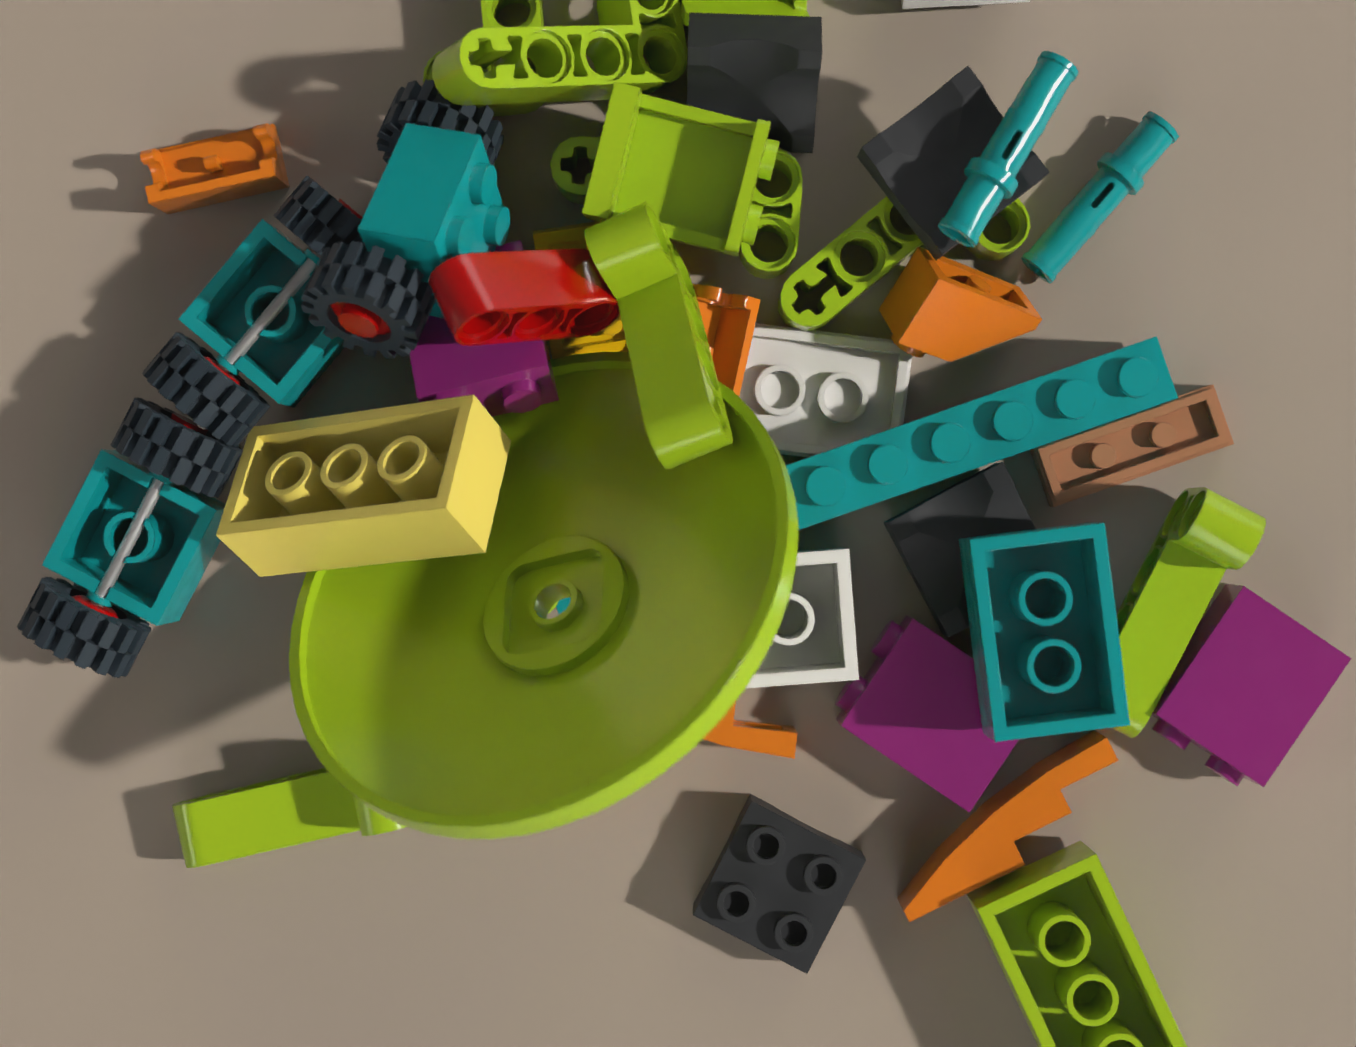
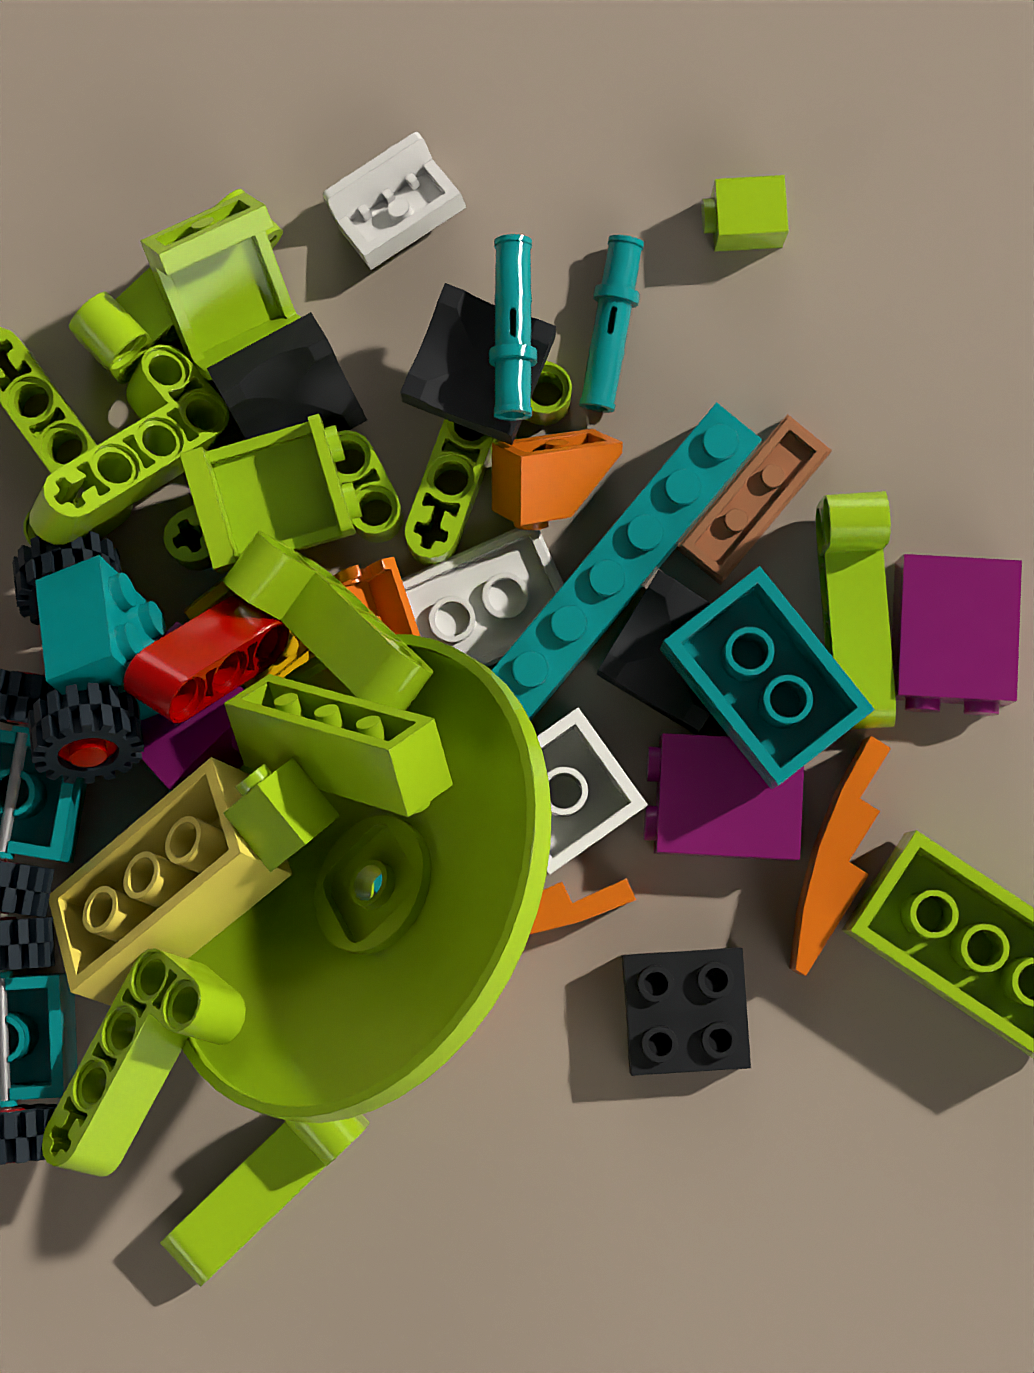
camera: 25 degrees left, 5 degrees down
(278, 604) = (132, 1055): none -> lime beam
(506, 490) = (279, 812): none -> lime brick
(603, 460) = (342, 743): none -> lime brick
(1294, 167) = (746, 213): none -> lime brick

